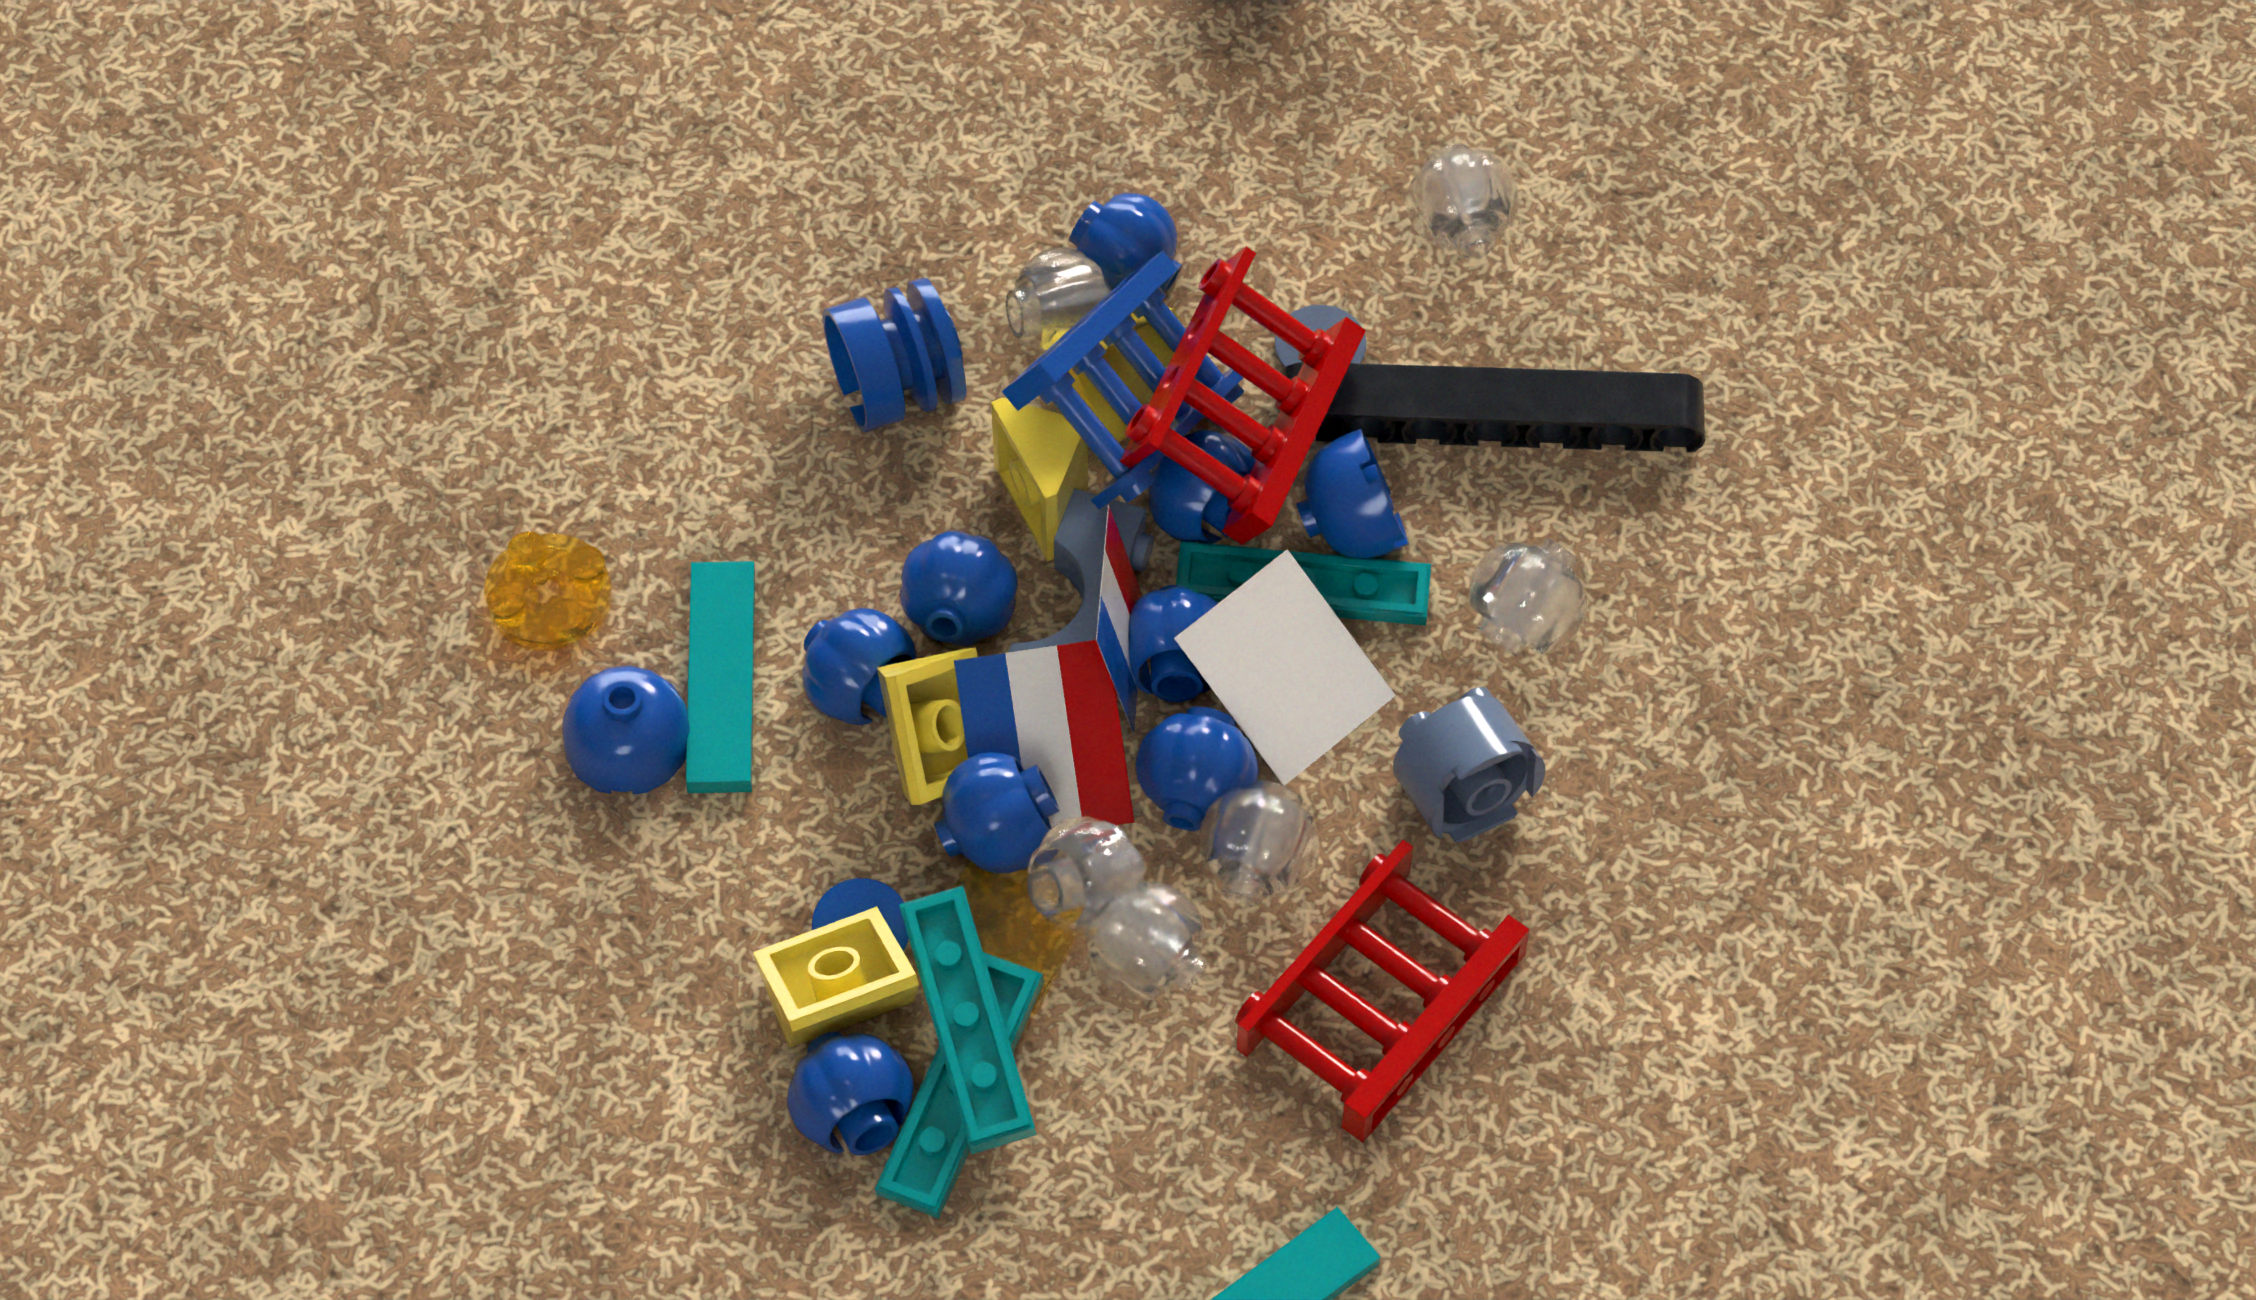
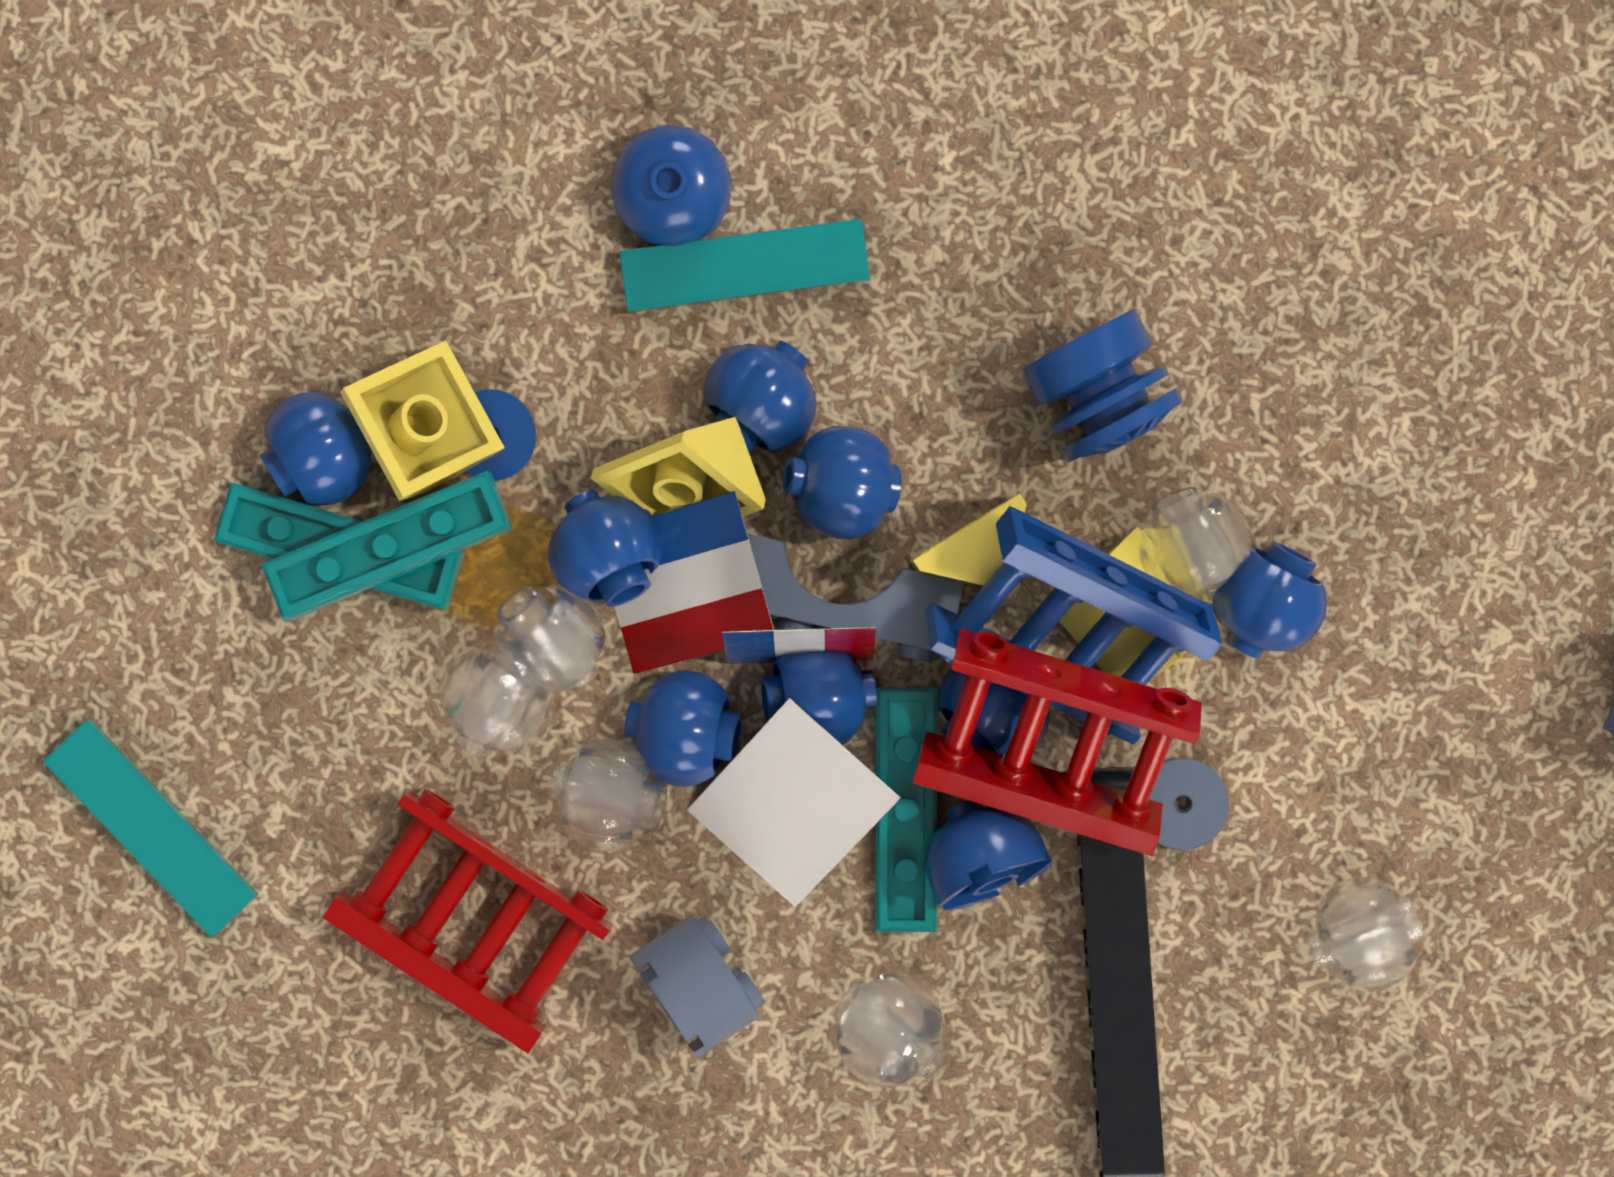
camera: 80 degrees right, 30 degrees up
(534, 561) = (841, 113): clear yellow plate -> none

